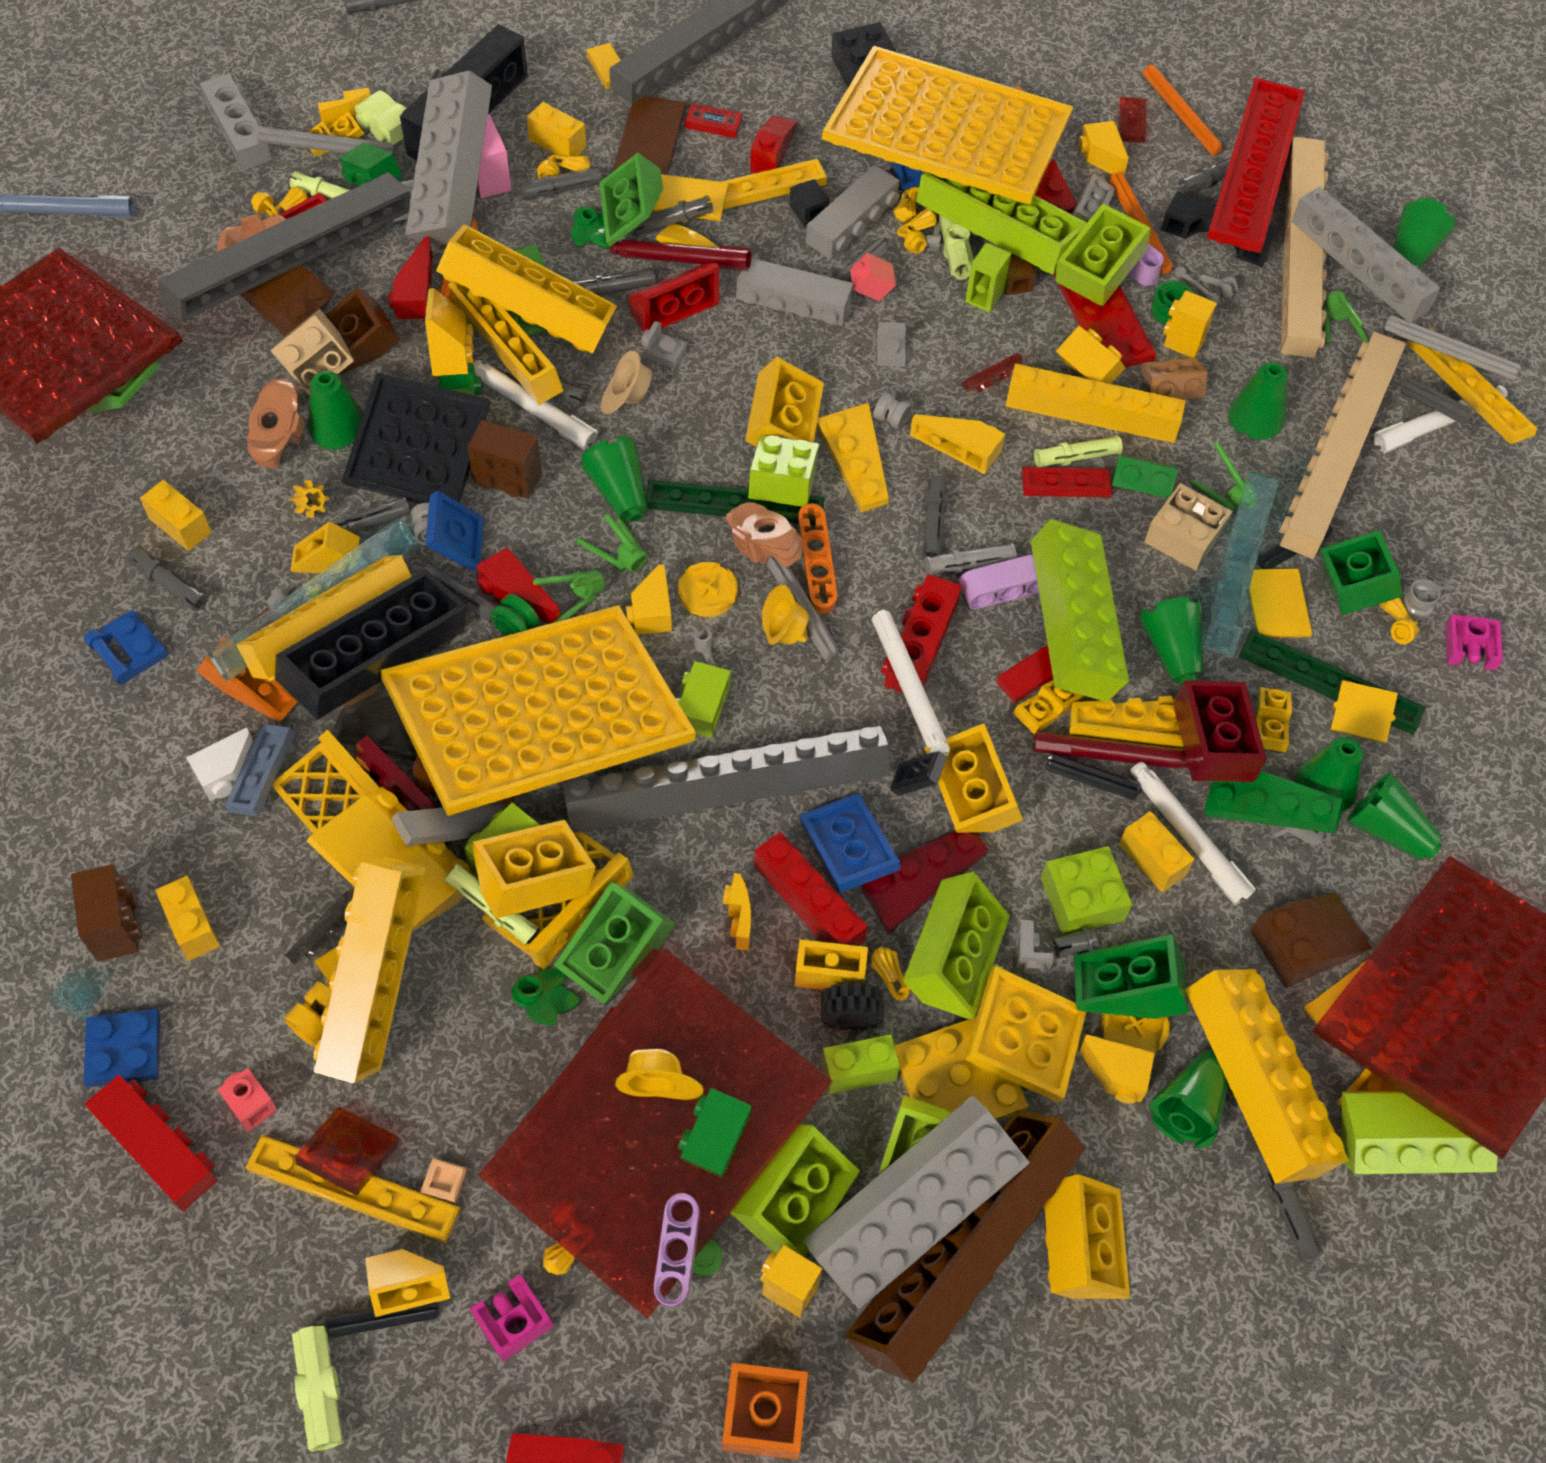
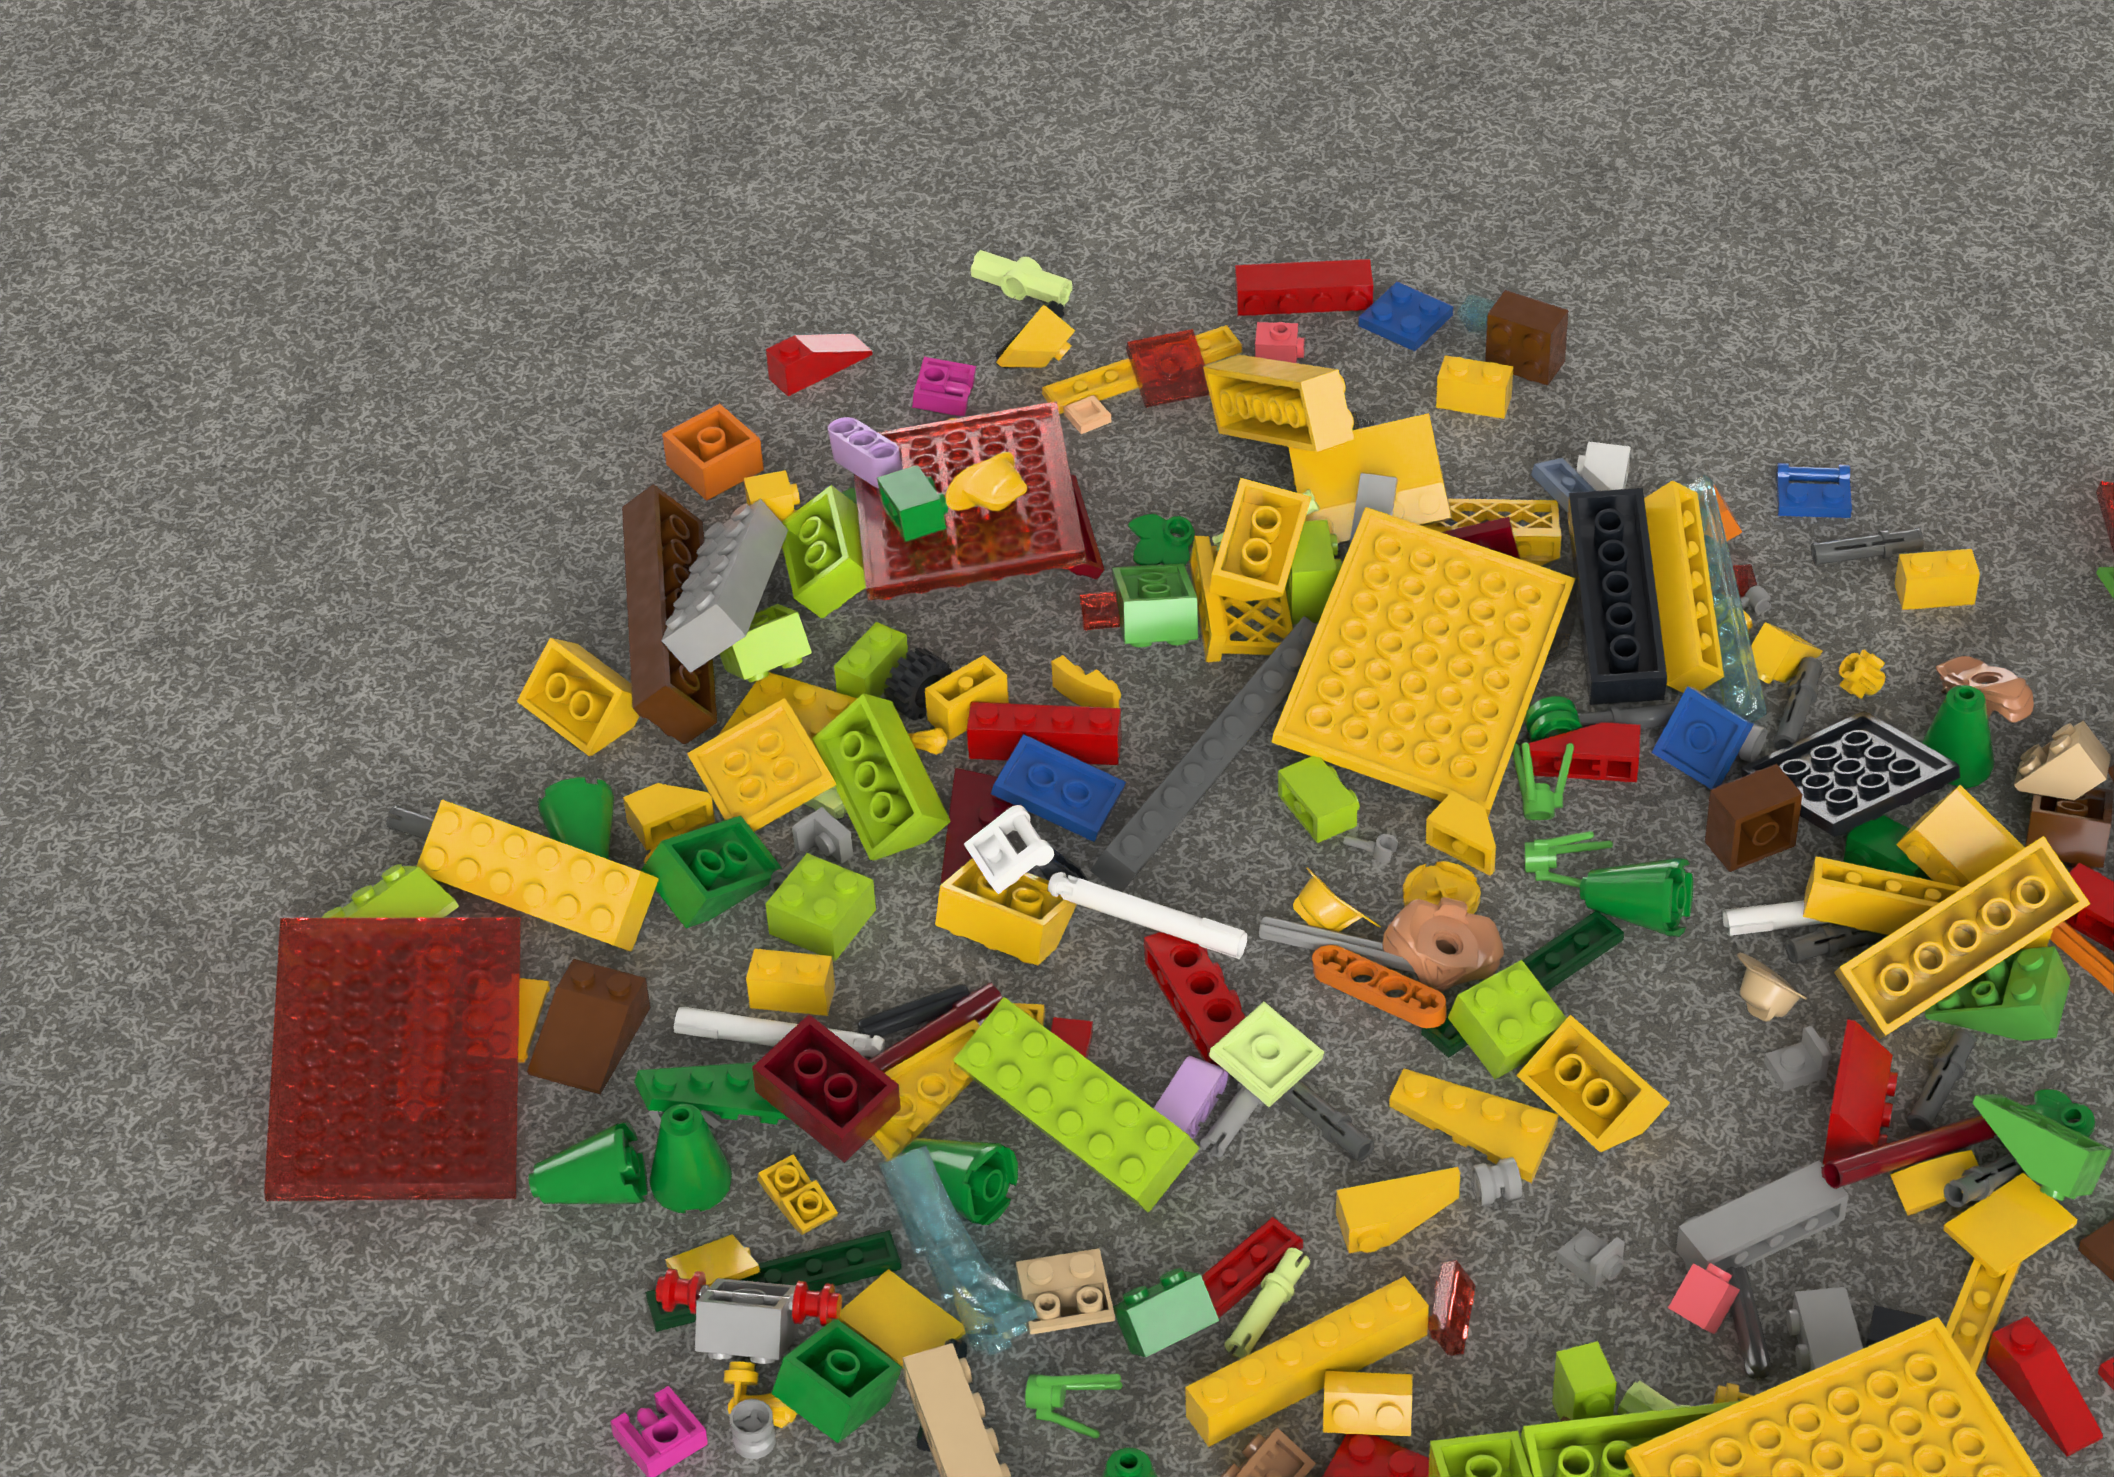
camera: 140 degrees right, 15 degrees down
(937, 555) = (1266, 1054): none -> yellowish green tile
(961, 792) = (997, 855): none -> white plate
(1381, 641) = (746, 1315): none -> light grey brick

